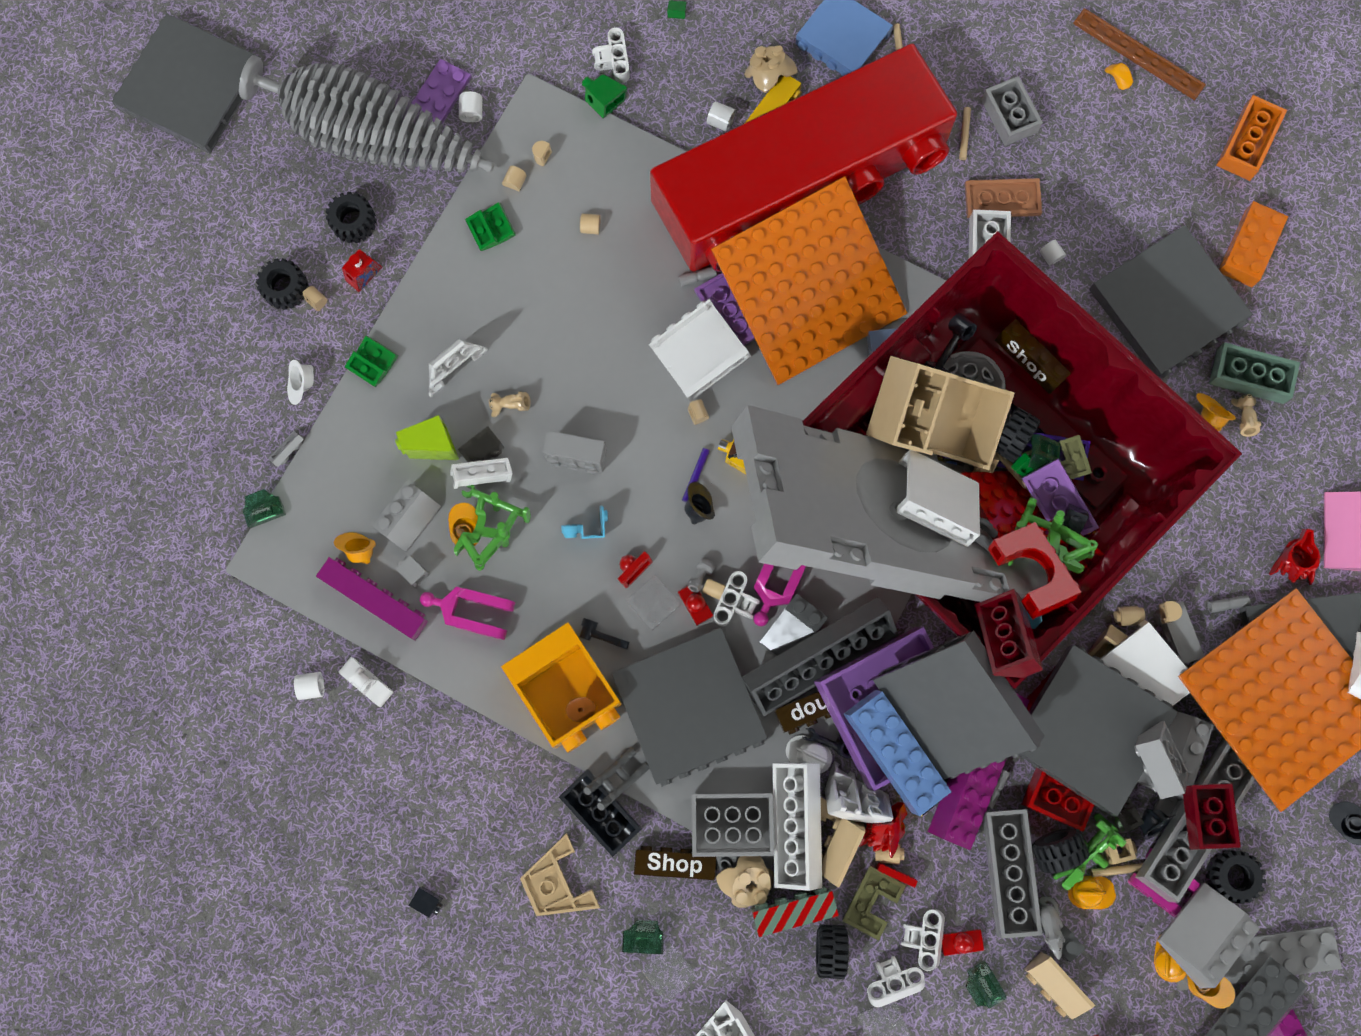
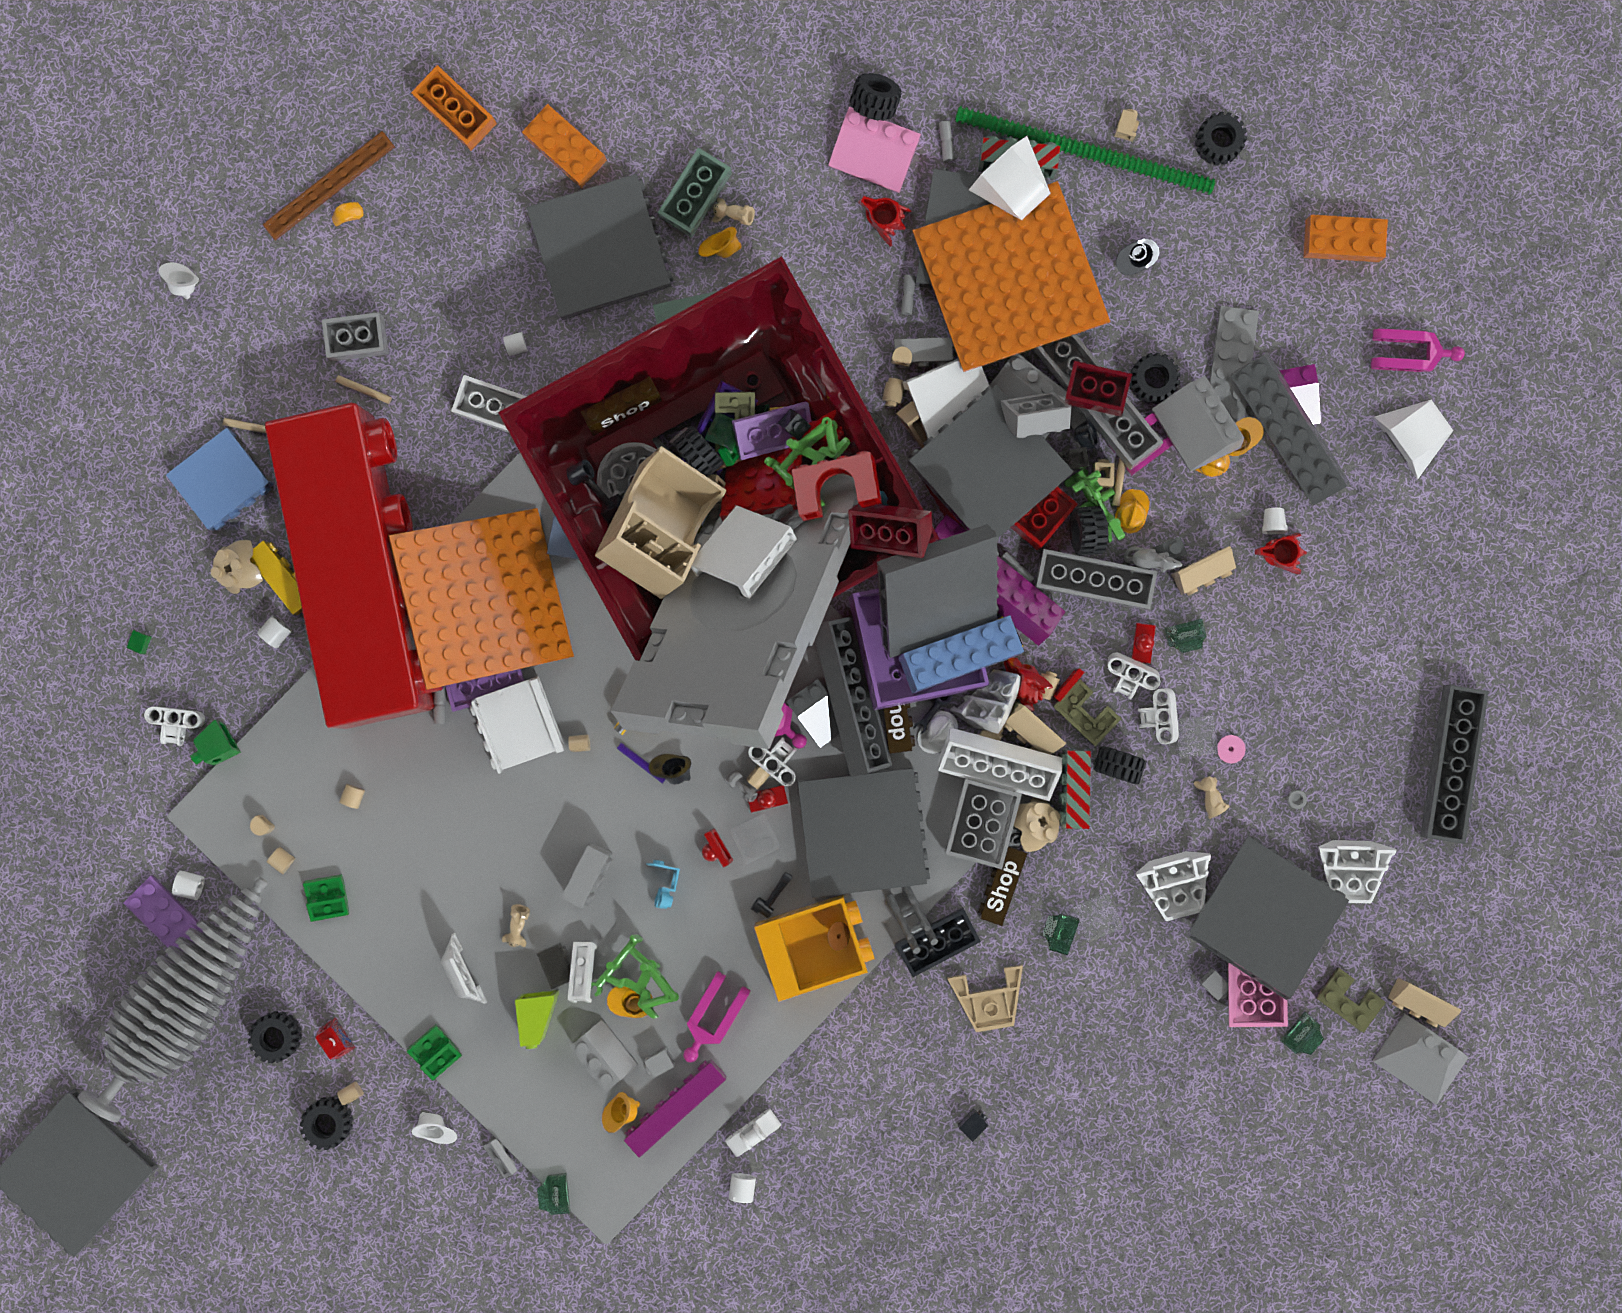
camera: 80 degrees left, 10 degrees up
(1013, 195) = (443, 373): nougat plate -> none

